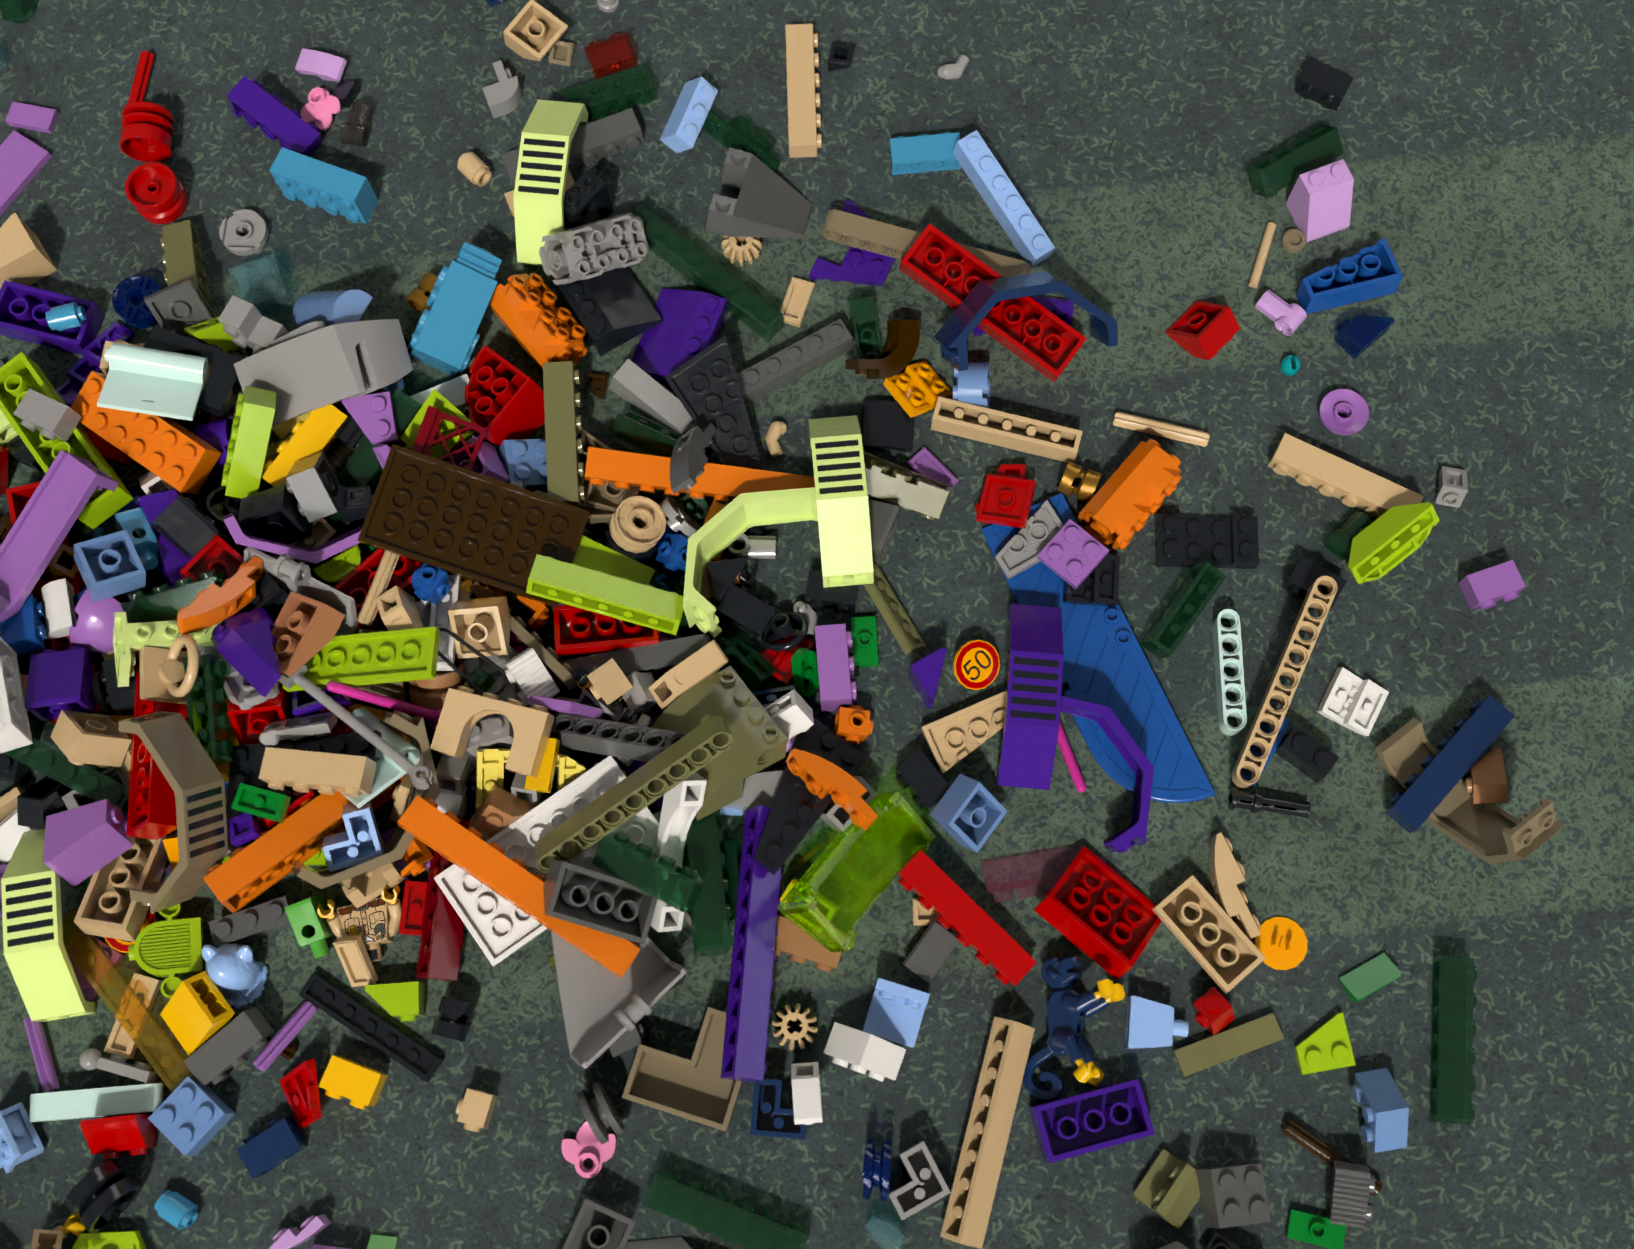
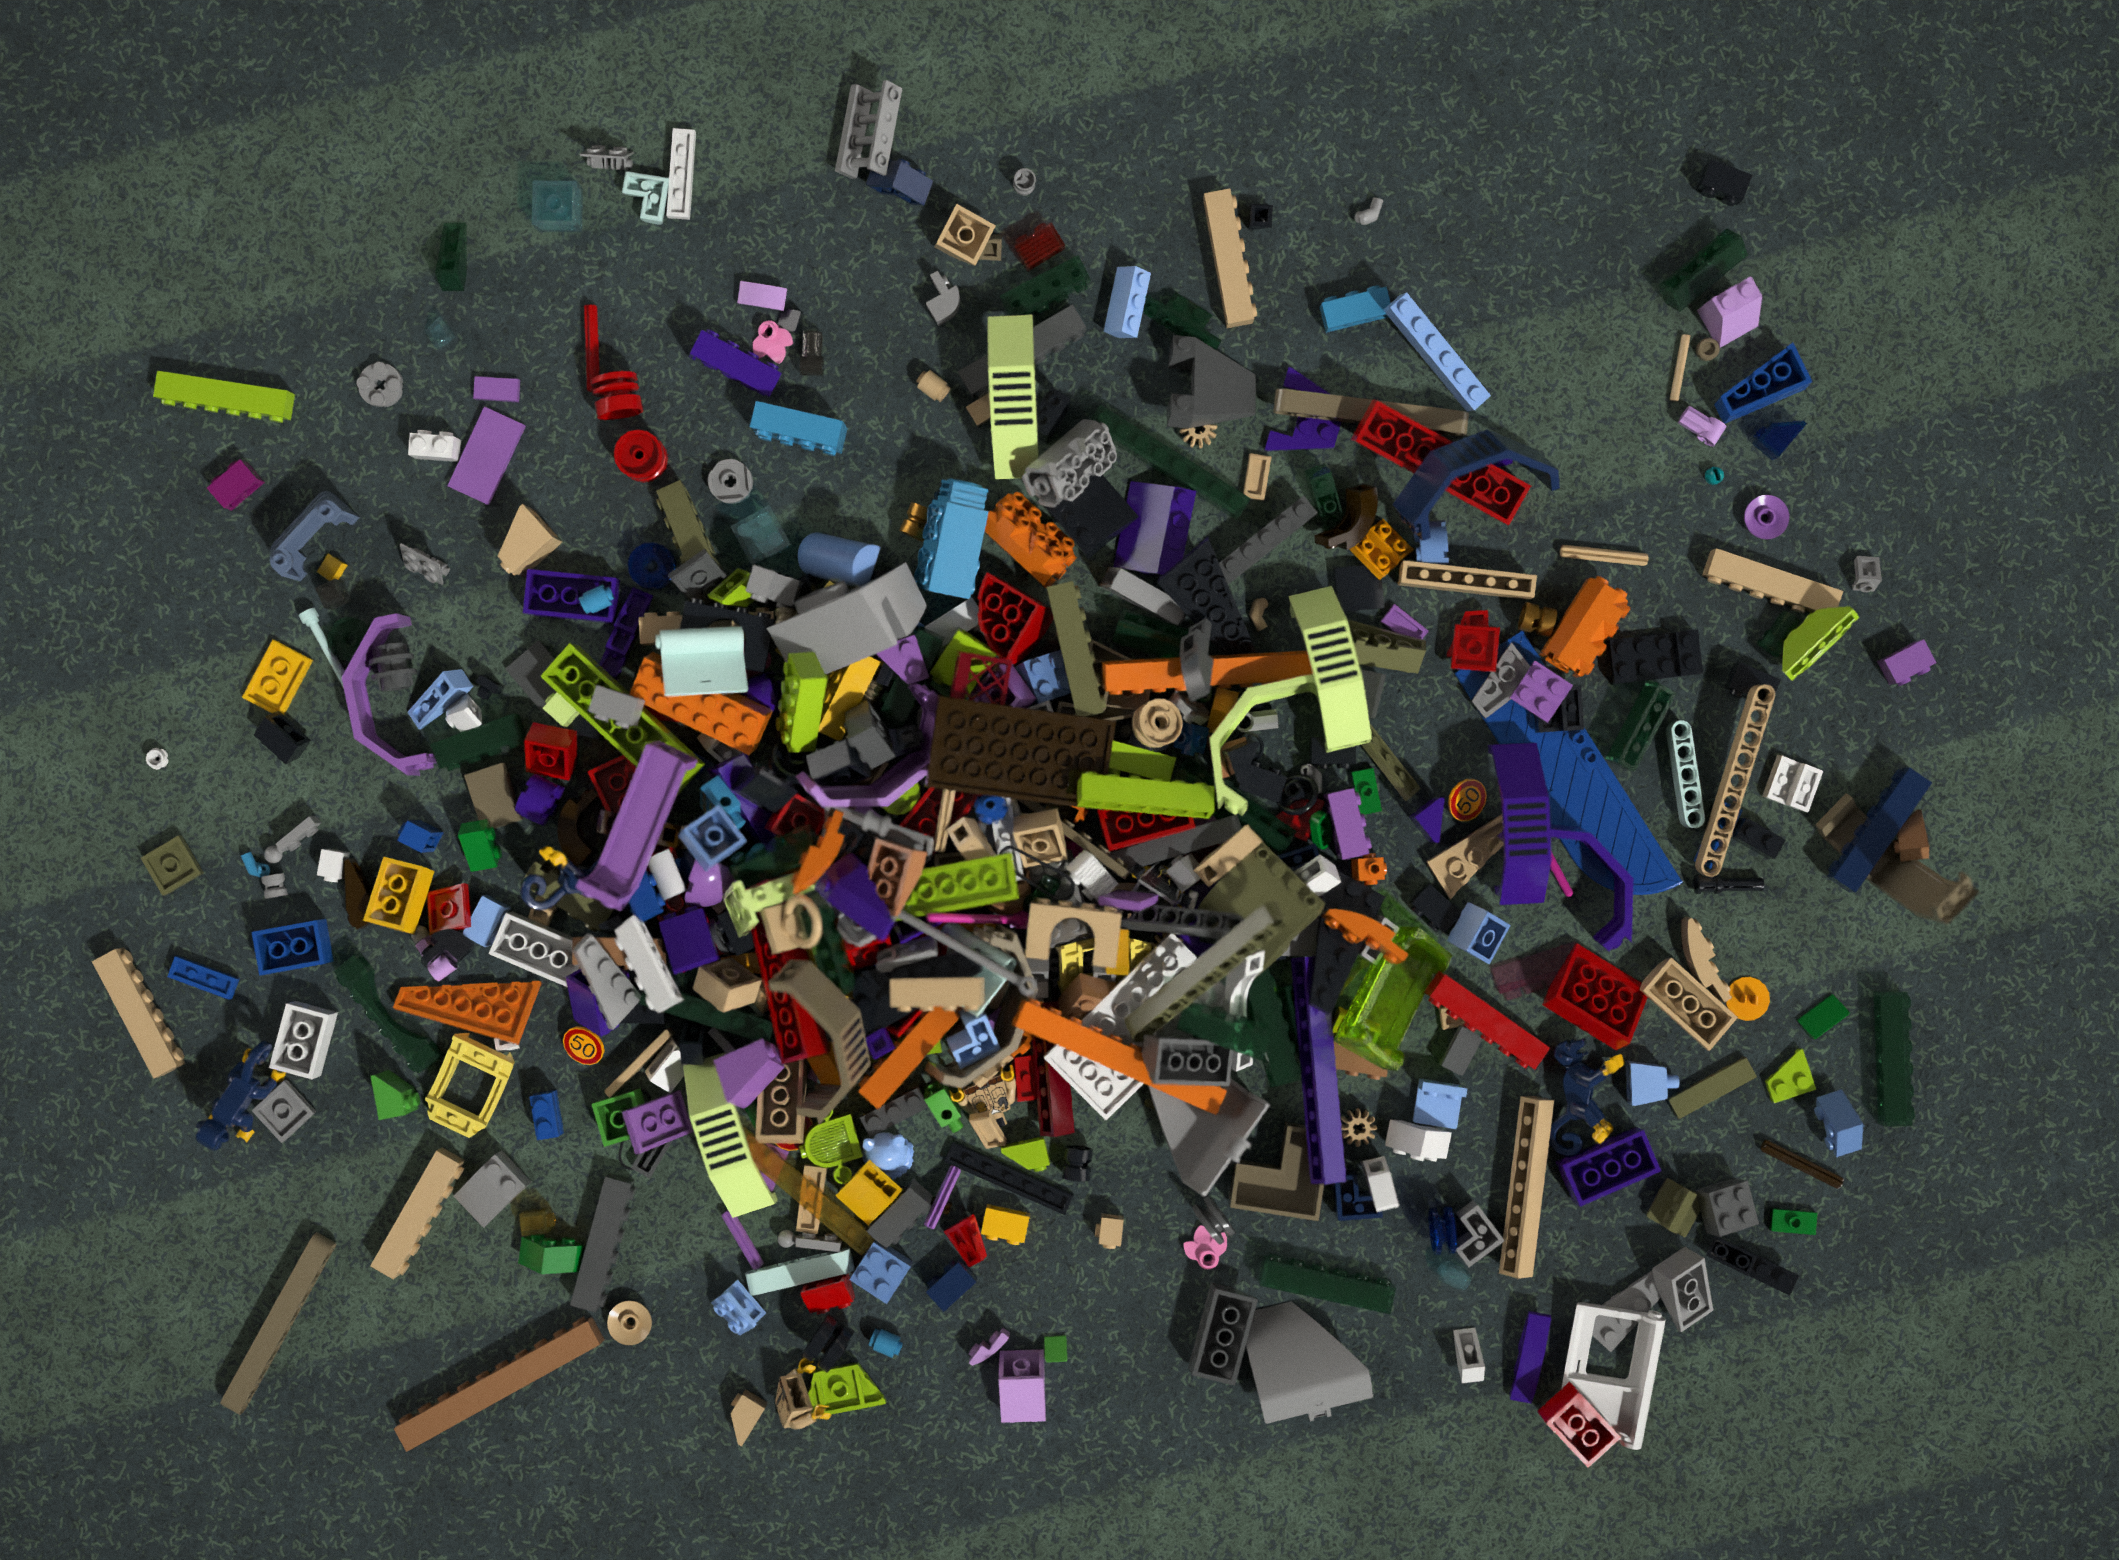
camera: 15 degrees left, 15 degrees up
(261, 802) = (892, 1022): green plate -> none
(597, 384) = (1088, 584): dark brown tile -> none
(608, 682) = (1161, 872): tan brick -> none
(1204, 329) = (1633, 453): red slope -> none
(1213, 1011) = (1697, 1065): red brick -> none
(1350, 1194) = (1819, 1192): dark grey brick -> none

